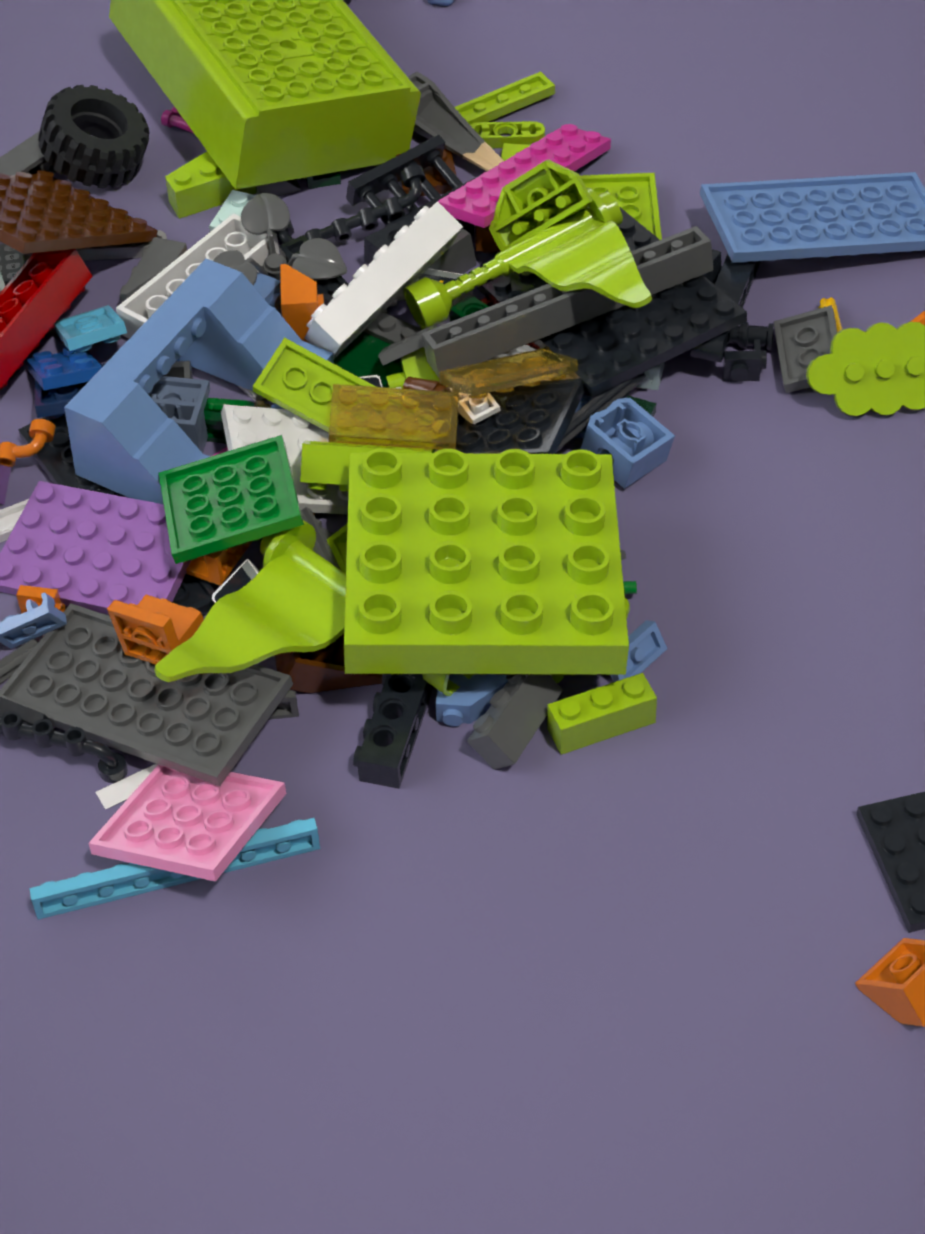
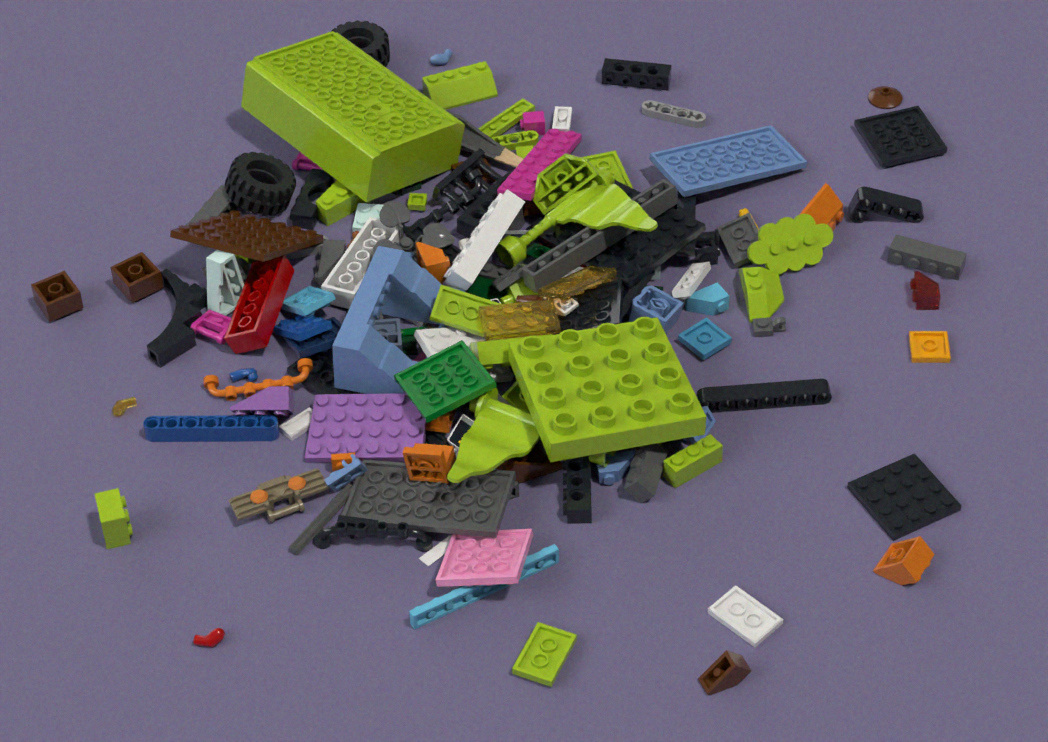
camera: 15 degrees left, 5 degrees down
(148, 191) = (305, 212): none -> black arch
(228, 1018) = (544, 654): none -> lime plate
(323, 202) = (417, 201): none -> lime plate
(453, 40) = (460, 86): none -> lime slope
(524, 1128) = (724, 673): none -> reddish brown slope
(544, 109) = (533, 121): none -> dark pink brick
(591, 111) = (562, 118): none -> white plate
(600, 1022) = (745, 616): none -> white tile
(694, 503) = (705, 338): none -> dark azure plate
(701, 401) = (691, 280): none -> white plate
(720, 439) = (708, 300): none -> medium azure slope
(728, 62) = (636, 74): none -> black brick
(763, 620) = (765, 395): none -> black beam
(794, 143) = (692, 118): none -> light grey beam
(803, 501) = (765, 326): none -> dark grey plate
(814, 442) = (761, 291): none -> lime wedge

